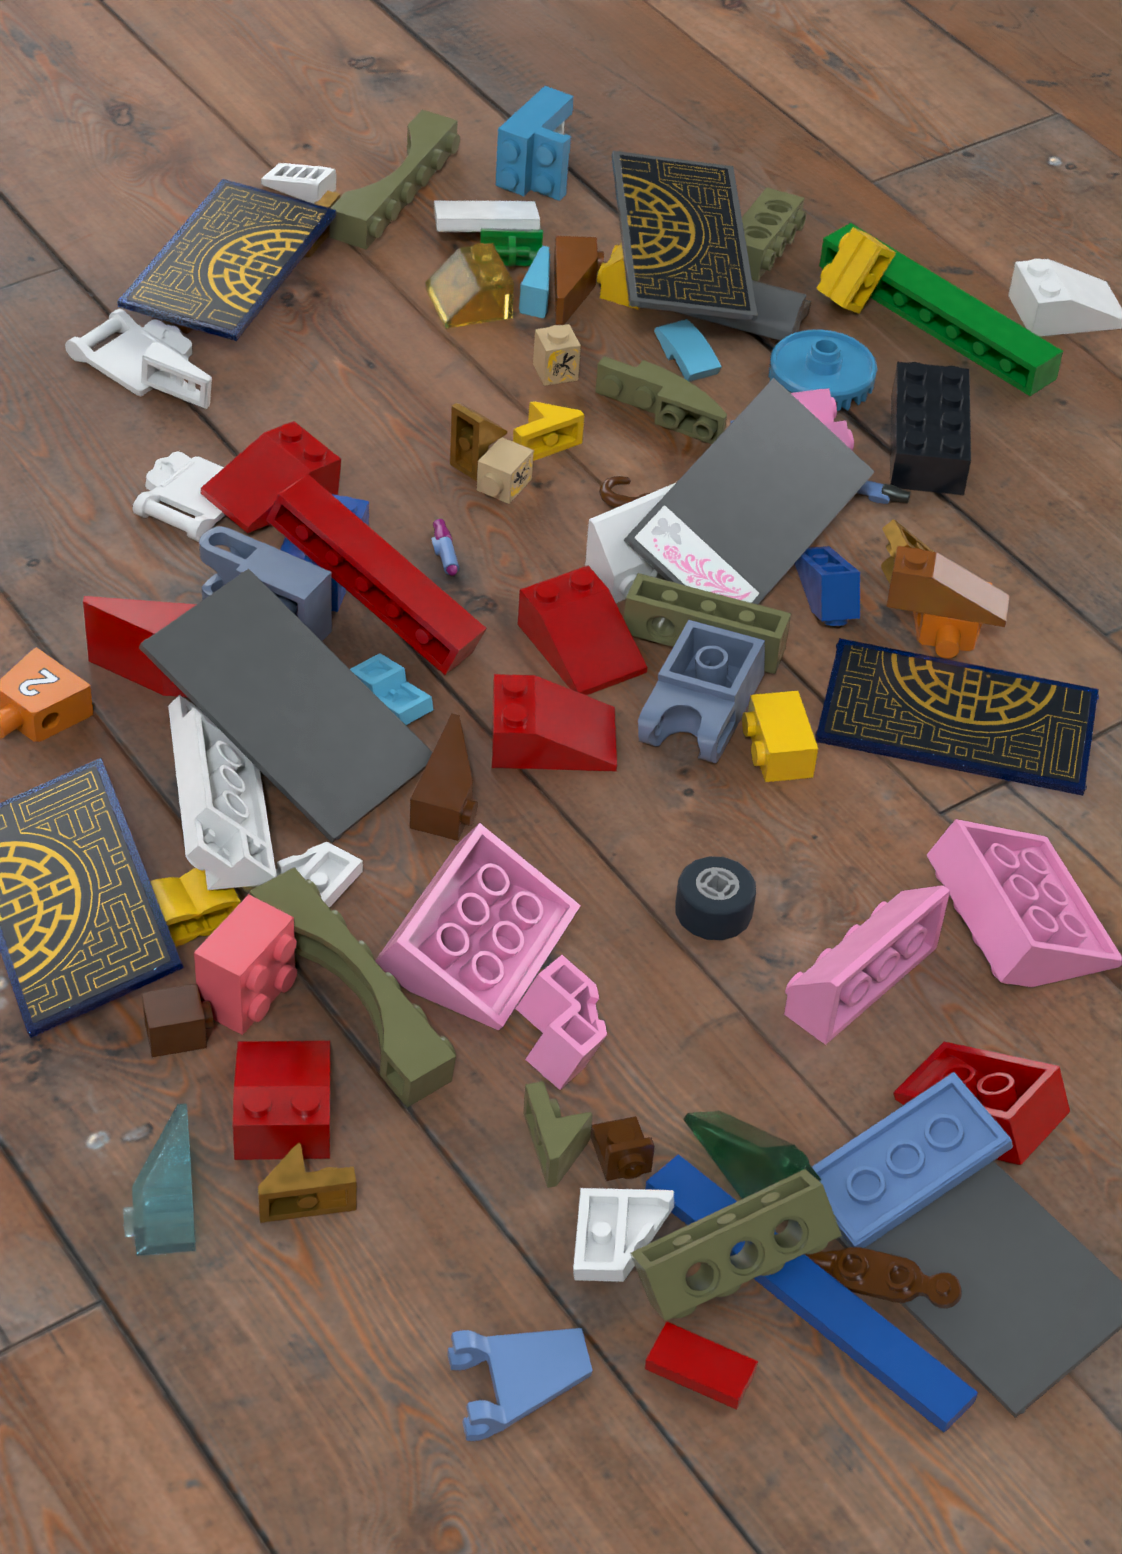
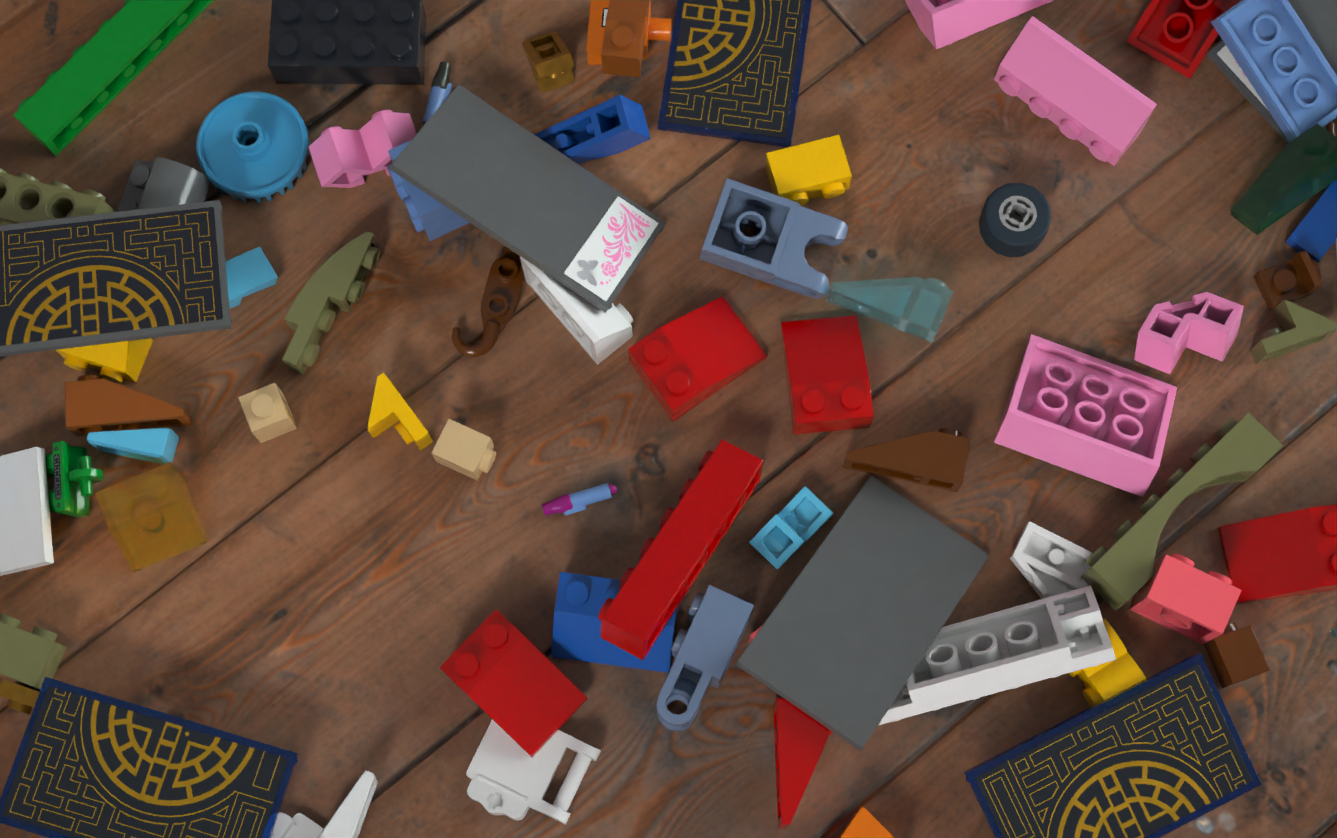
camera: 90 degrees left, 30 degrees up
(471, 438) = (432, 477): pearl gold slope -> none
(619, 798) = (902, 303): none -> clear light blue slope
(662, 608) = (678, 239): olive brick -> none
(855, 270) = (106, 107): yellow brick -> none

